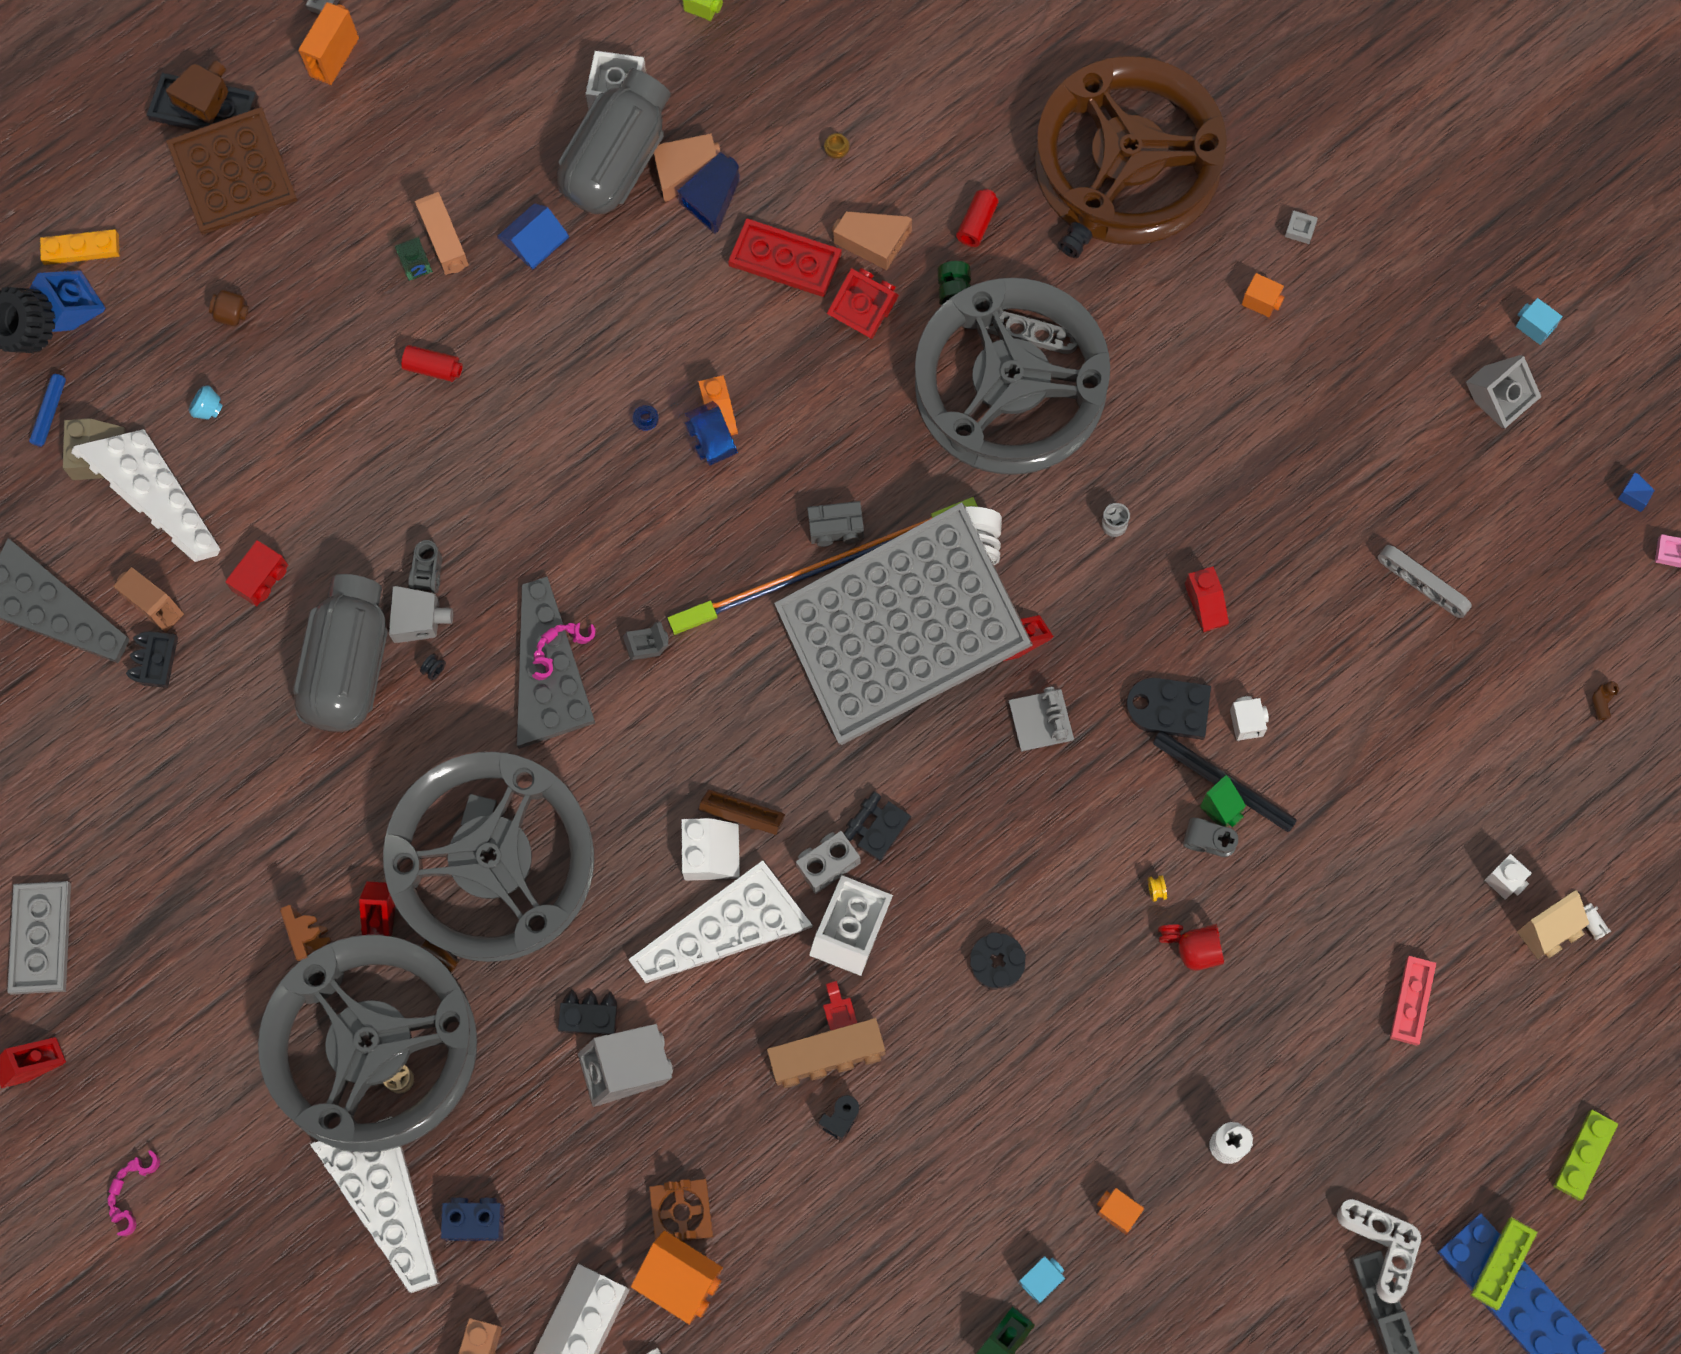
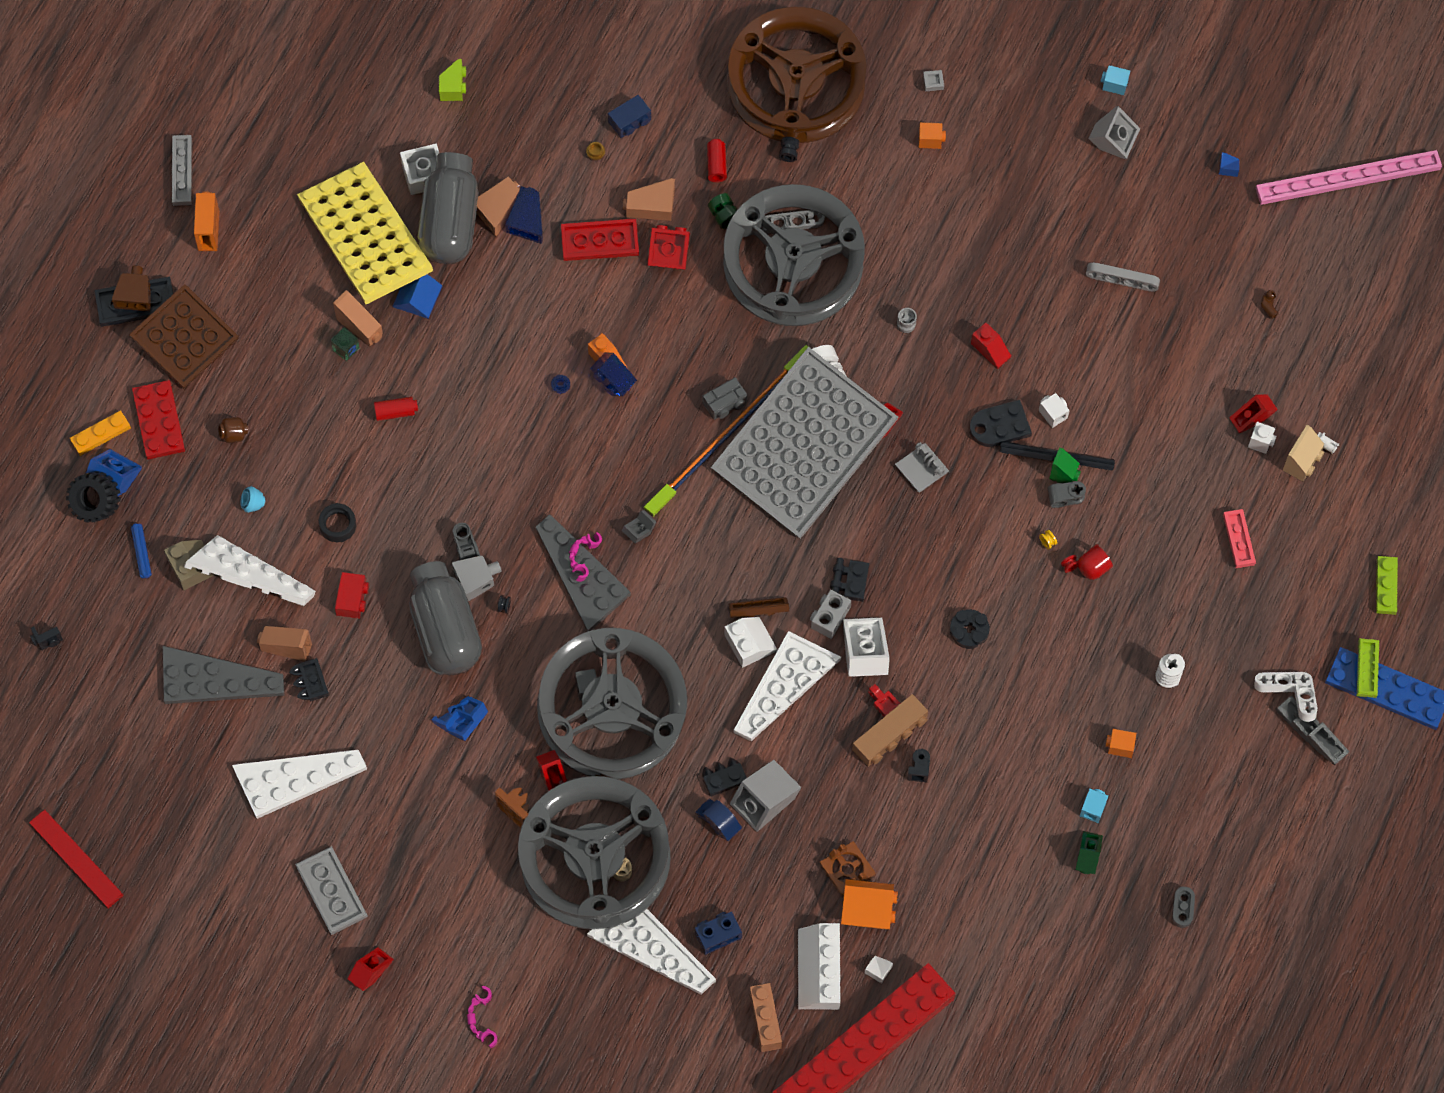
camera: 30 degrees left, 5 degrees down
(55, 771) = (284, 781): none -> white wing
(154, 259) = (158, 419): none -> red plate
(281, 459) = (335, 509): none -> black tyre
(309, 789) = (462, 718): none -> blue slope
(544, 138) = (360, 208): none -> light yellow piece
(549, 1070) = (719, 818): none -> dark blue brick
(898, 119) = (629, 116): none -> dark blue brick
(1513, 837) = (1255, 410): none -> red slope

